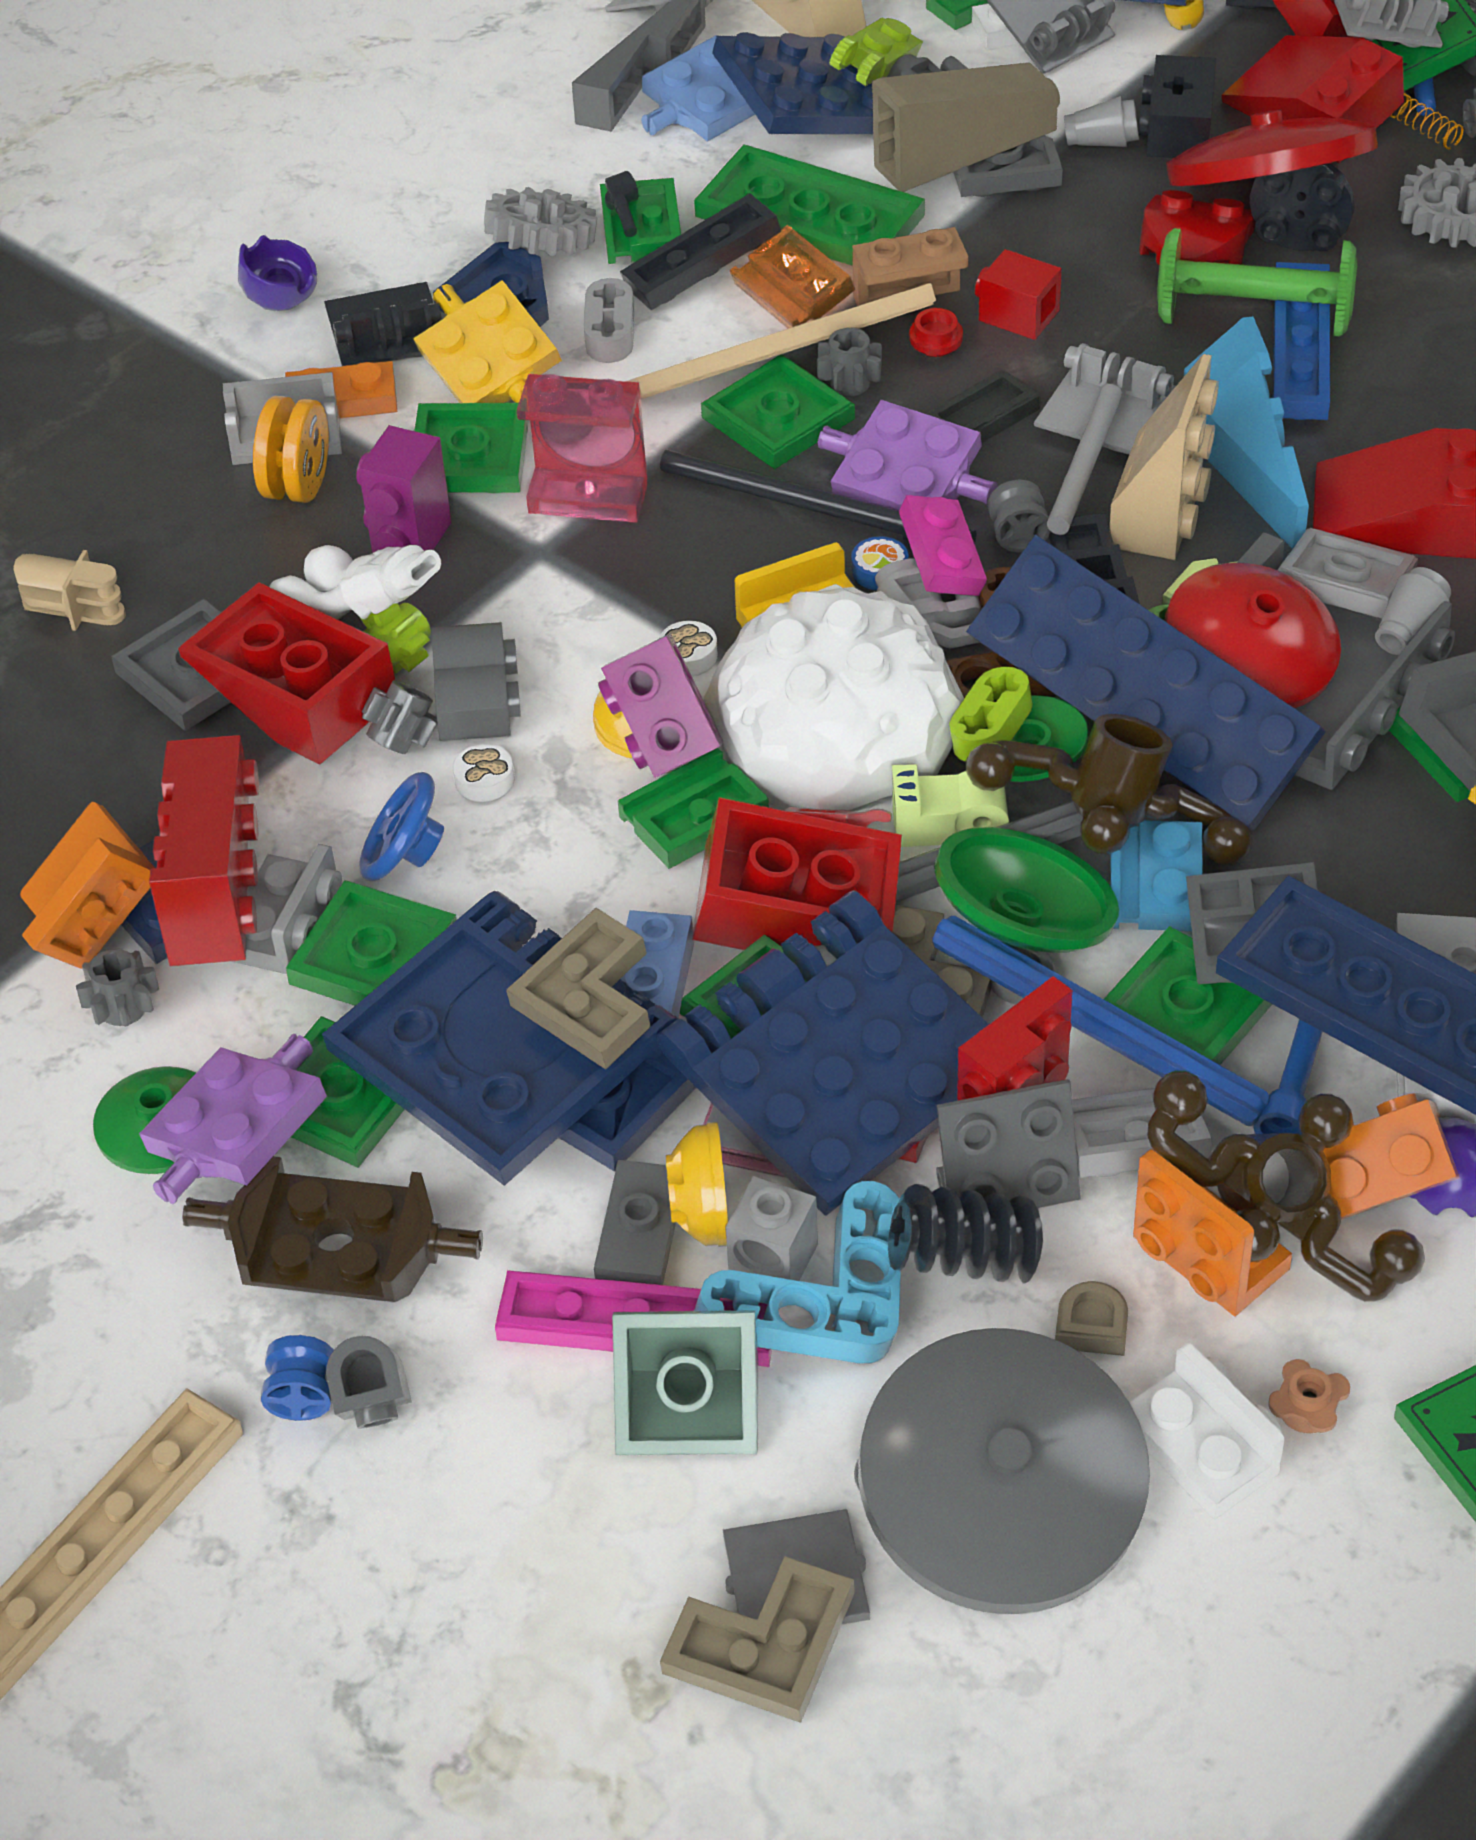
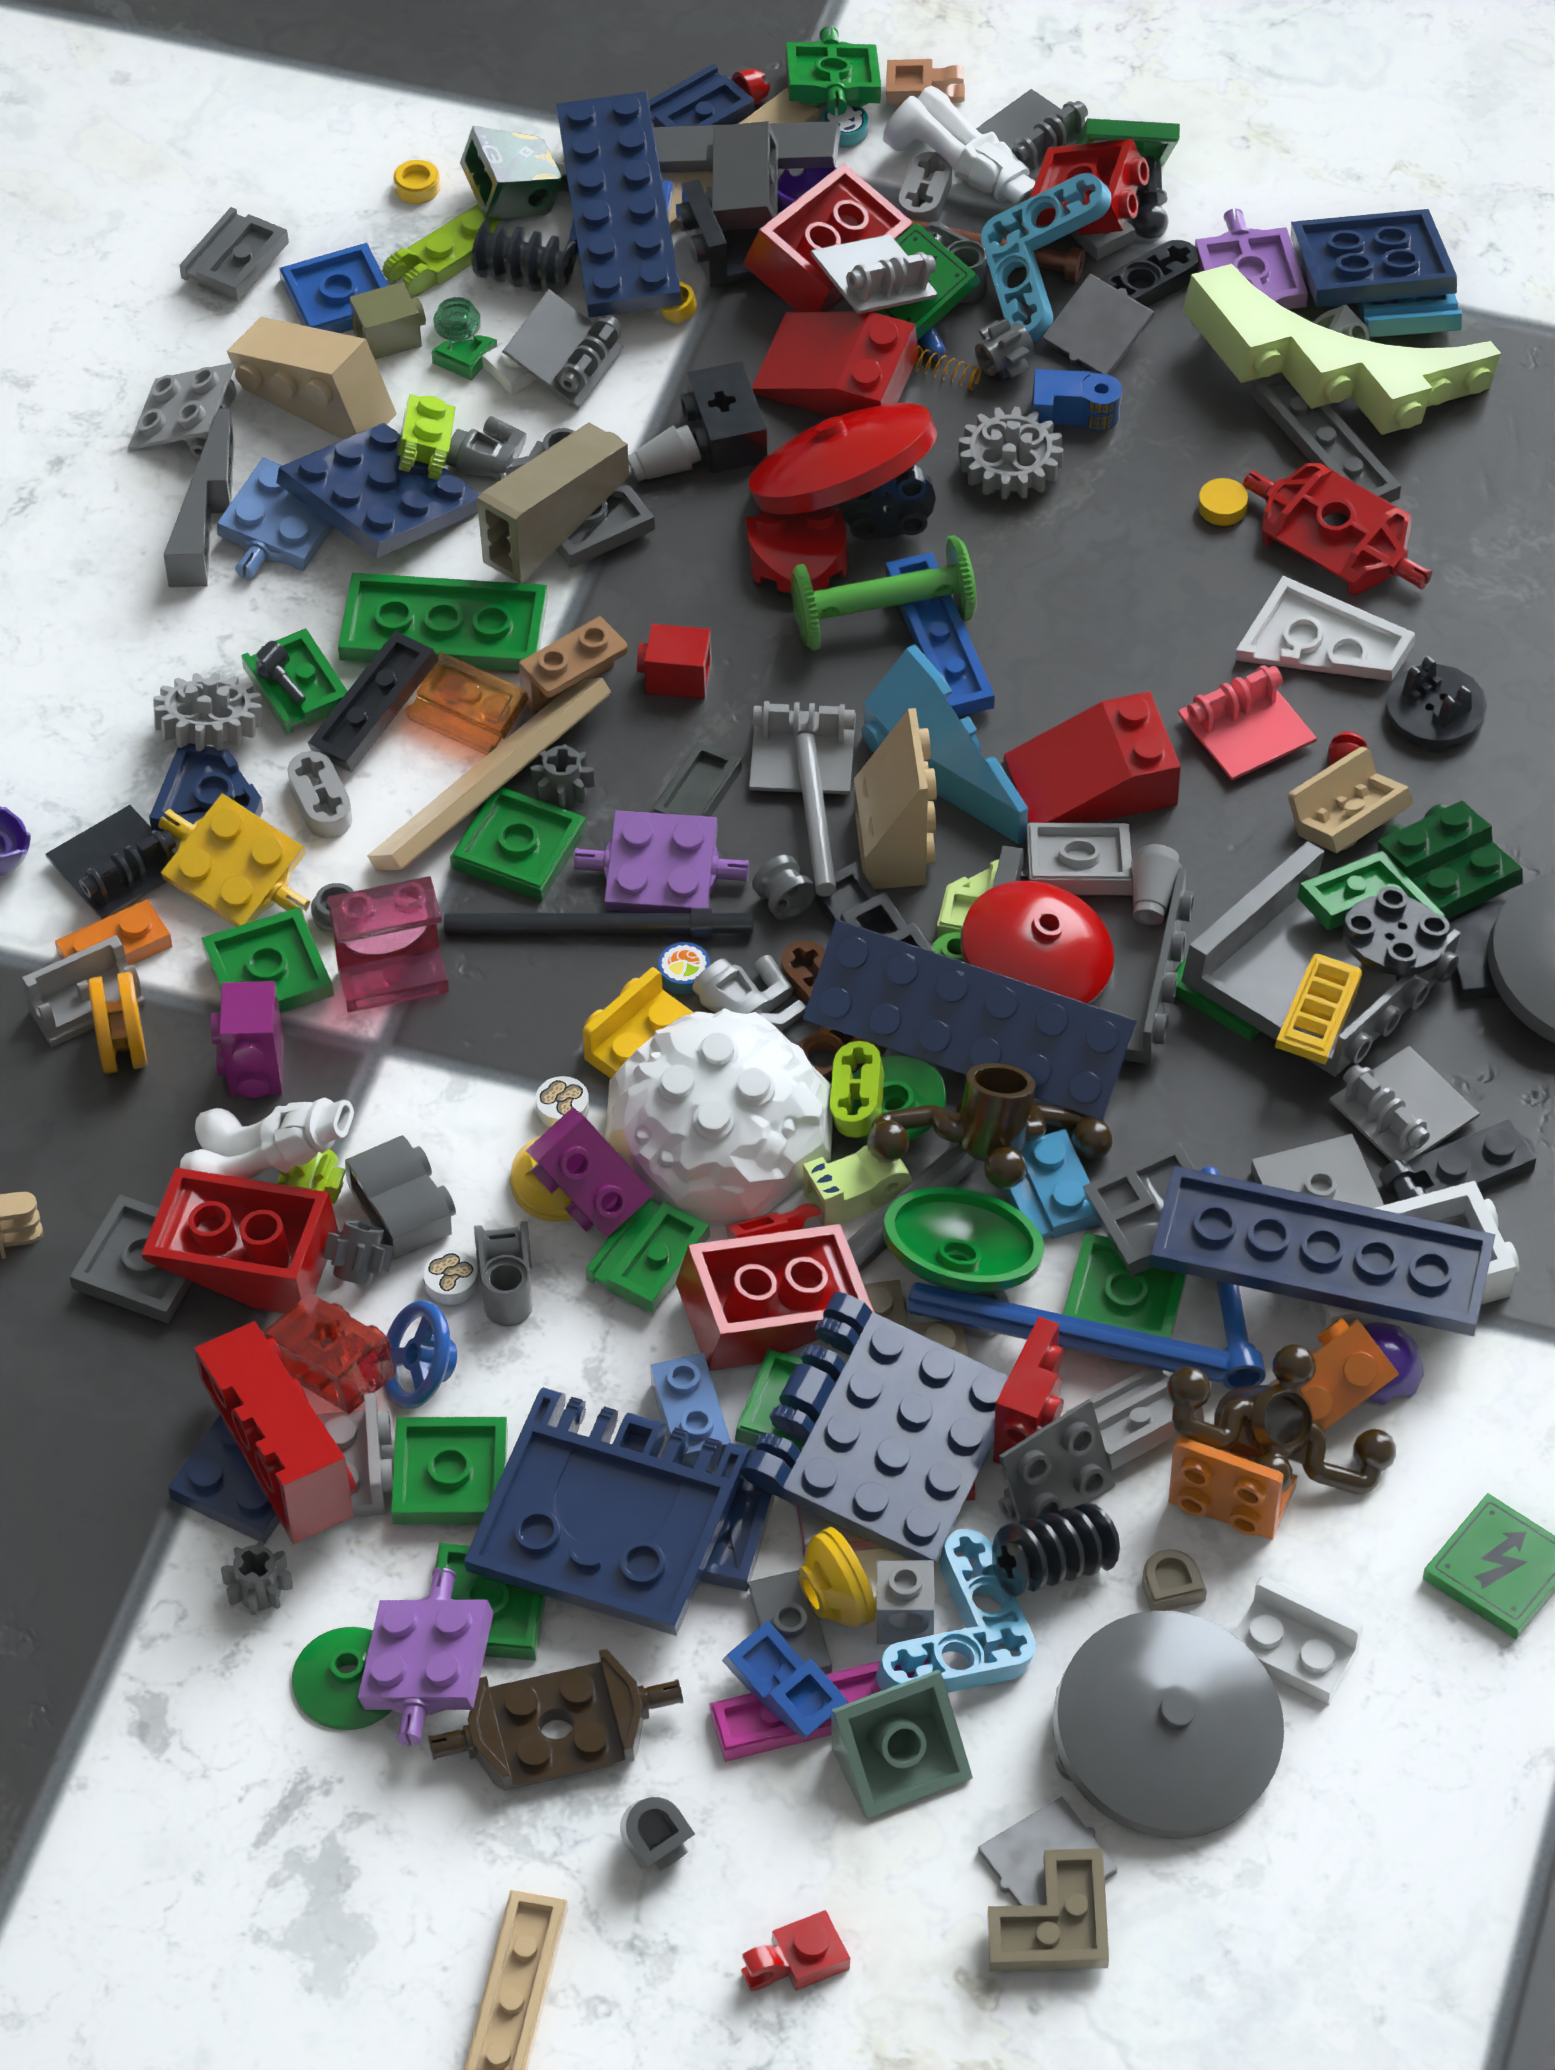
camera: 25 degrees left, 5 degrees up
(85, 888) = (181, 1497): orange bracket -> none
(297, 1378) = (597, 1849): blue wheel -> none
(315, 797) = (332, 1352): none -> clear red brick
(465, 1575) = (802, 1950): none -> red plate
(538, 781) = (505, 1265): none -> dark grey piece
(573, 990) = (663, 1461): dark tan plate -> none
(592, 1267) = (783, 1682): none -> blue slope
(936, 332) = (620, 721): red plate -> none
(942, 545) = (739, 940): dark pink plate -> none
(1307, 1413) = (1358, 1599): nougat plate -> none

